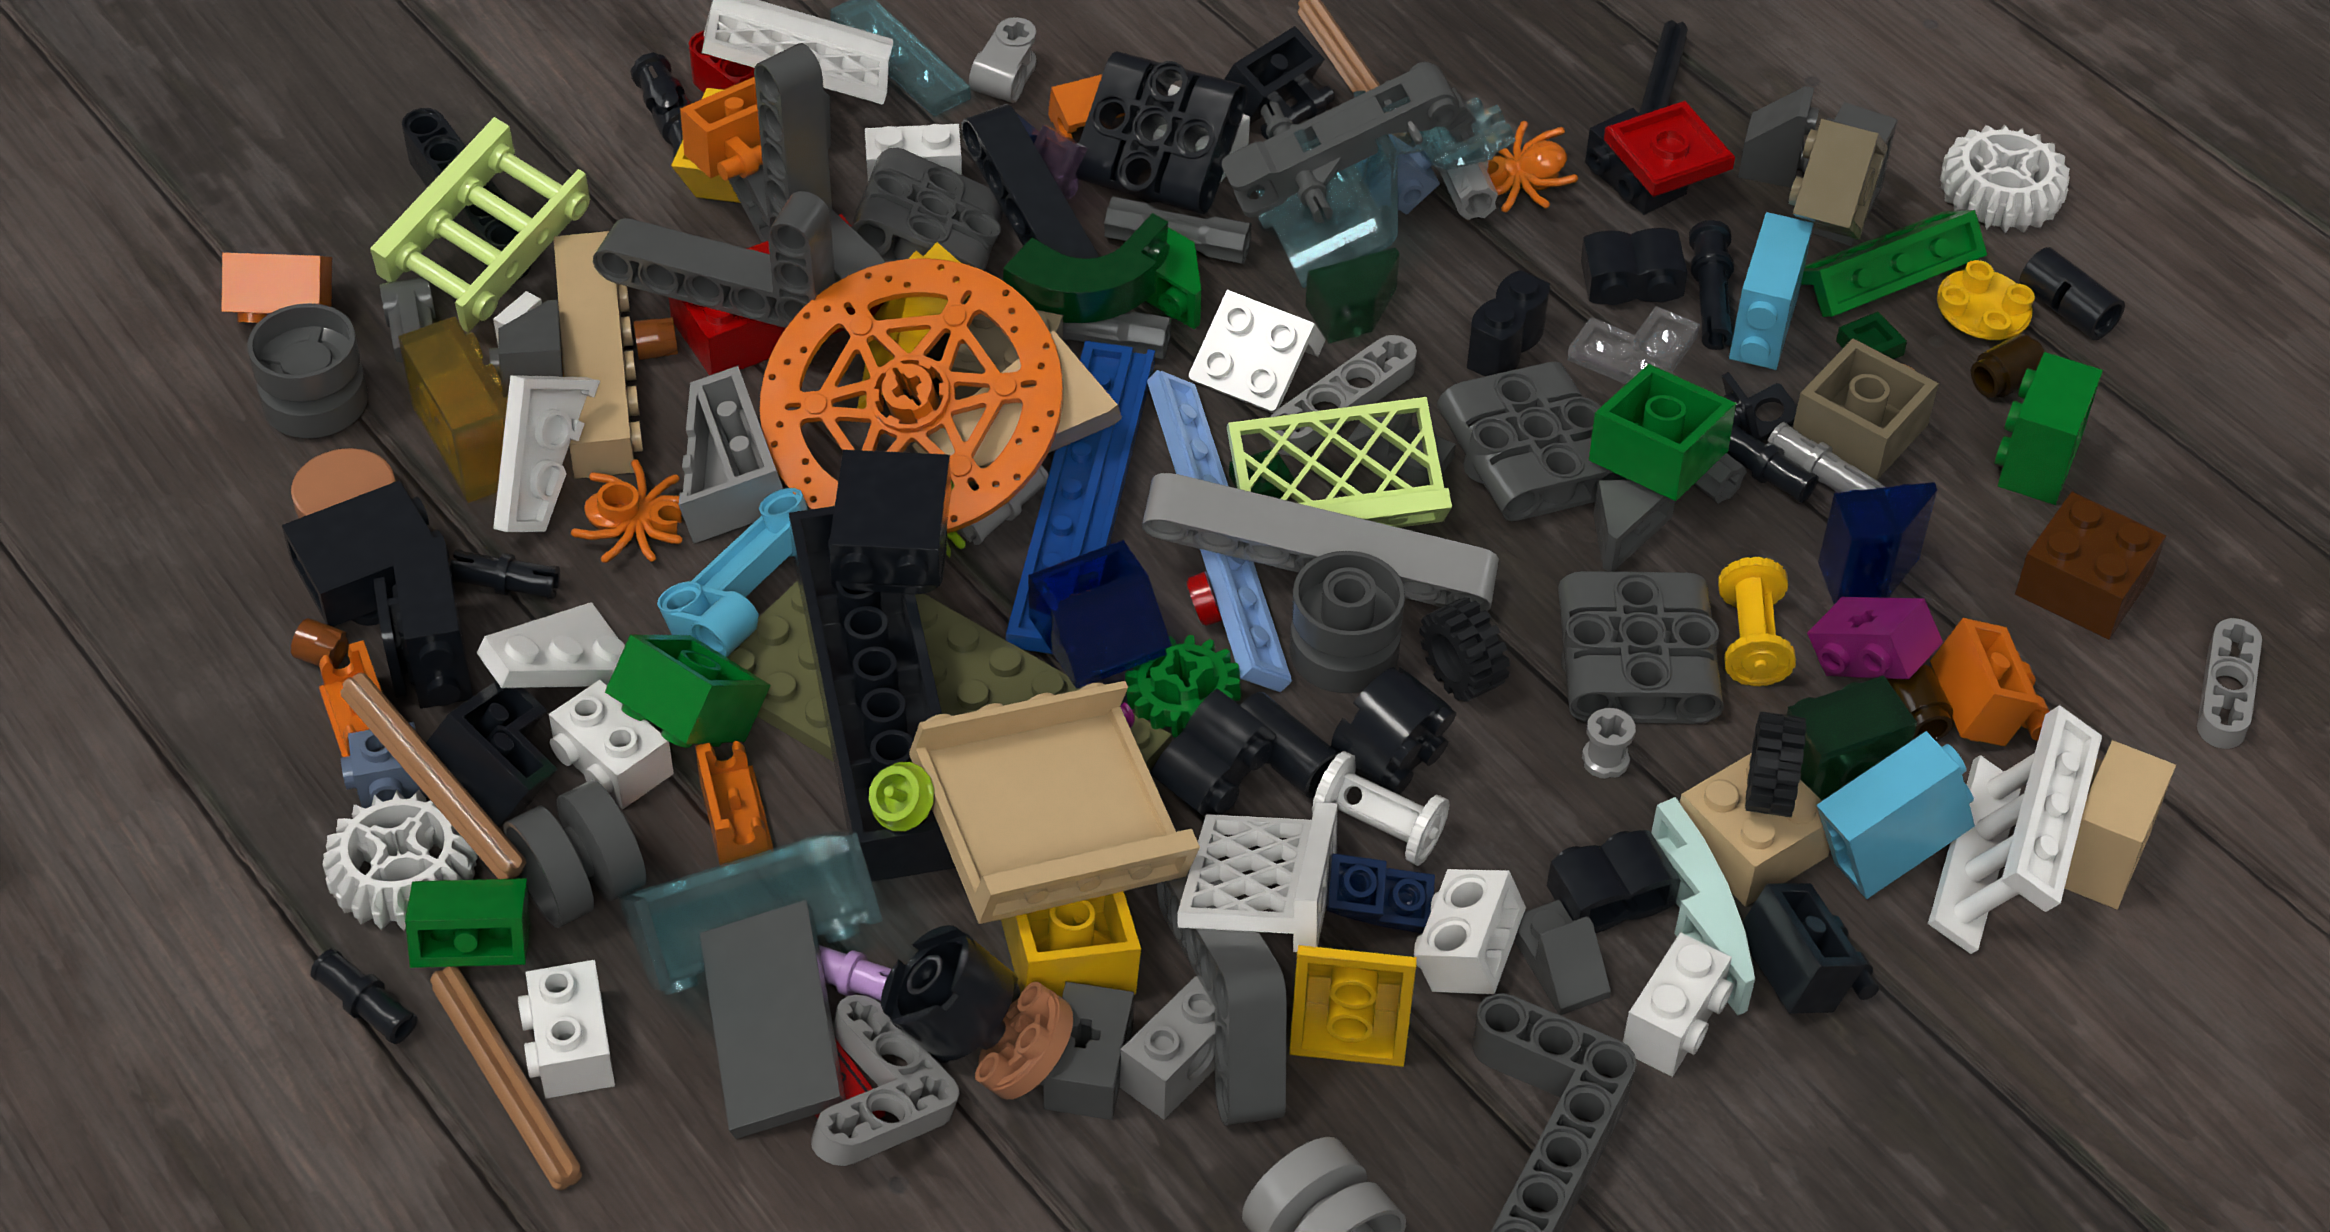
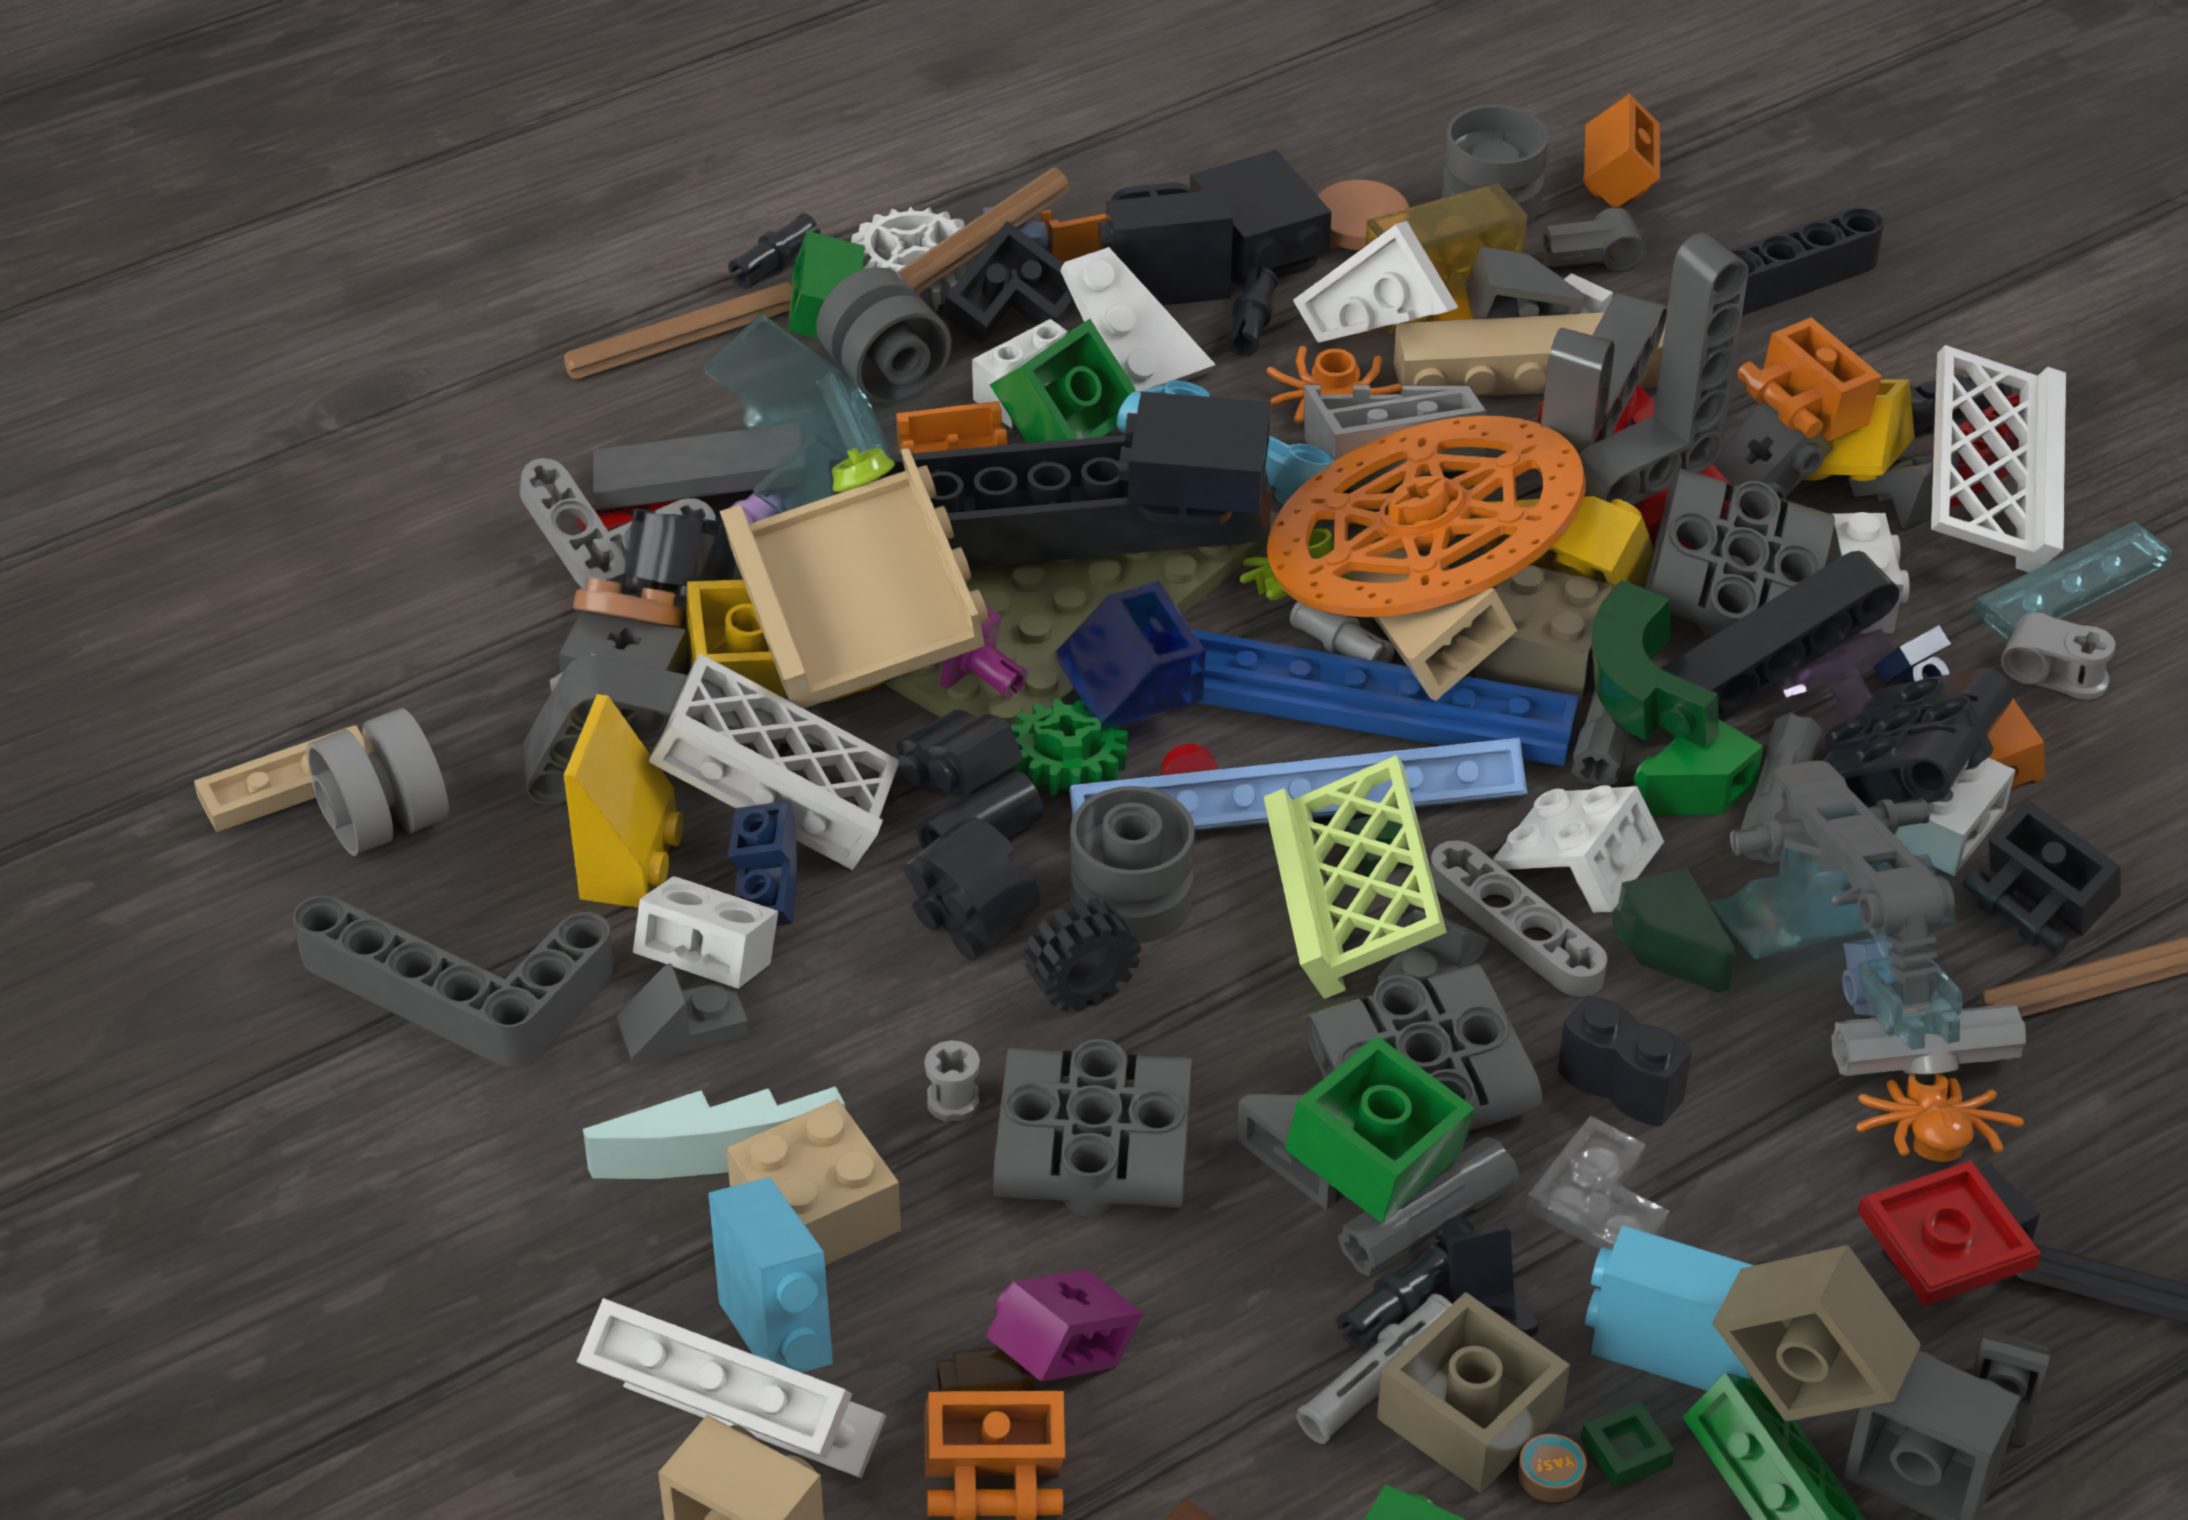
camera: 95 degrees right, 5 degrees down
(463, 185) = (1684, 212): yellowish green fence -> none
(568, 1029) = (690, 345): white brick -> none
(1294, 534) = (1234, 846): light grey beam -> none
(1384, 809) = (850, 907): white hose -> none
(1615, 880) = (759, 1050): black brick -> none
(1633, 266) = (1747, 1201): black brick -> none
(1677, 1004) = (579, 1080): white brick -> none
(1759, 653) = (1118, 1232): yellow hose -> none
(1775, 764) = (812, 1126): black tyre -> none
(1805, 950) = (628, 1196): black brick -> none
(1851, 732) = (897, 1265): clear green brick -> none
(1874, 539) = (1221, 1354): clear blue slope -> none

